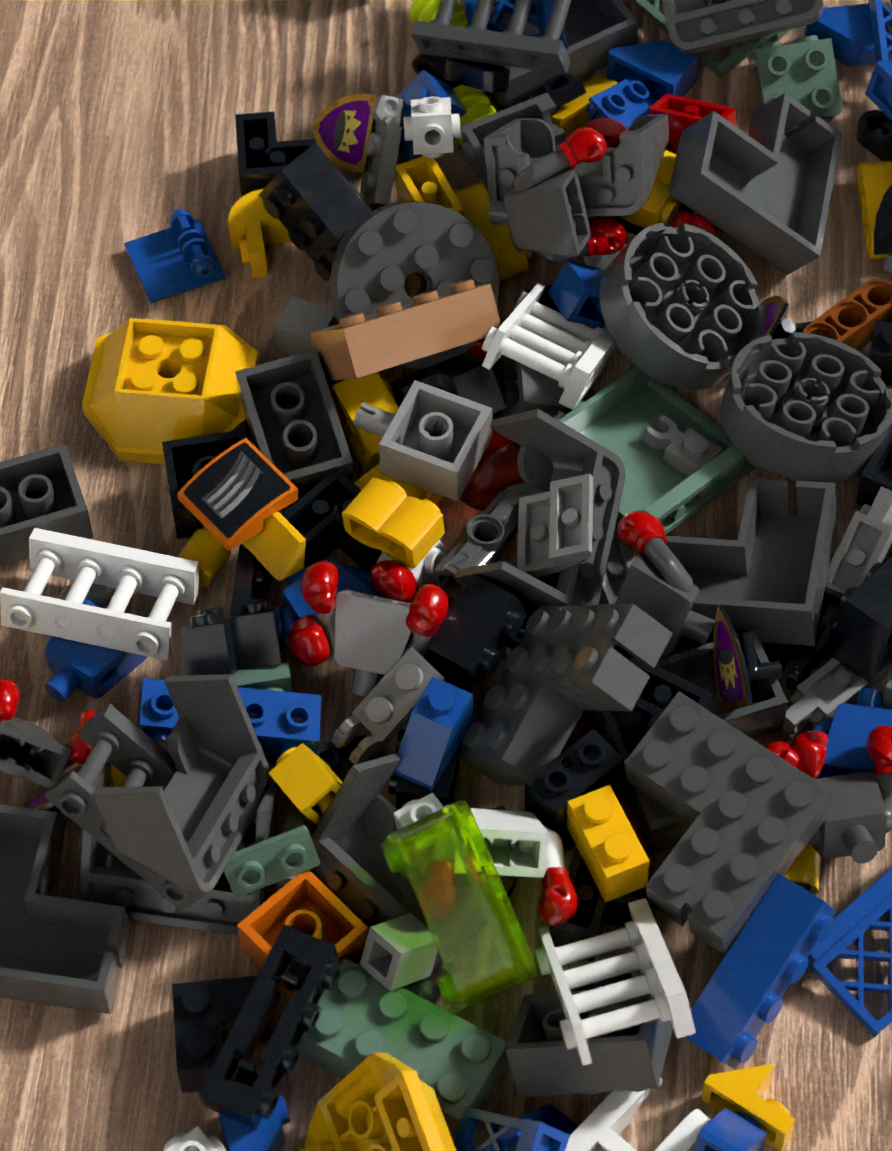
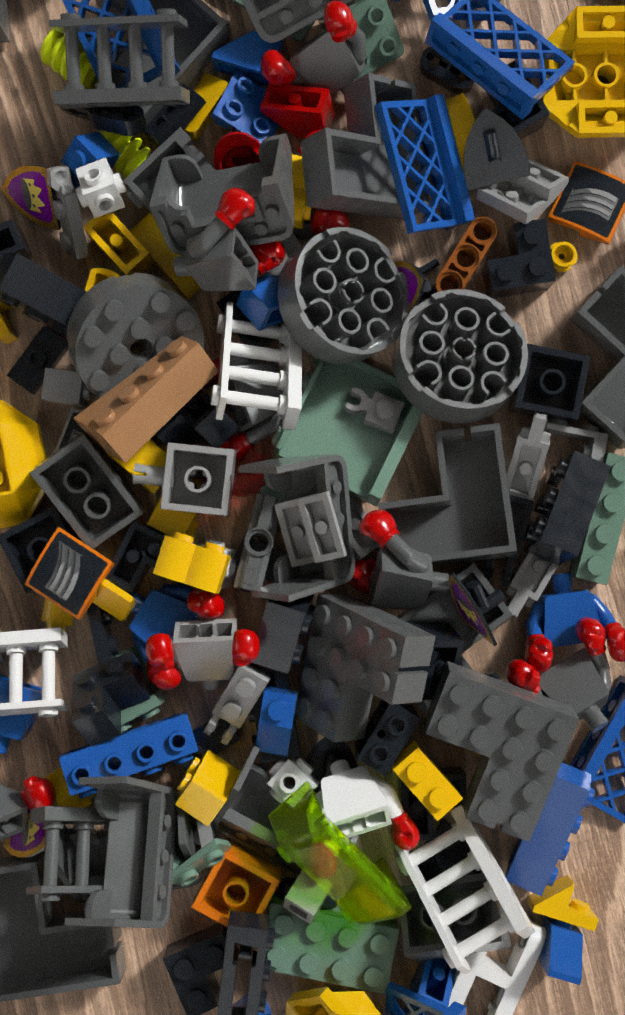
camera: 20 degrees left, 30 degrees up
(267, 304) = (42, 353): none -> black plate
(743, 80) = (325, 61): none -> dark grey torso
(849, 212) = (440, 161): none -> blue fence

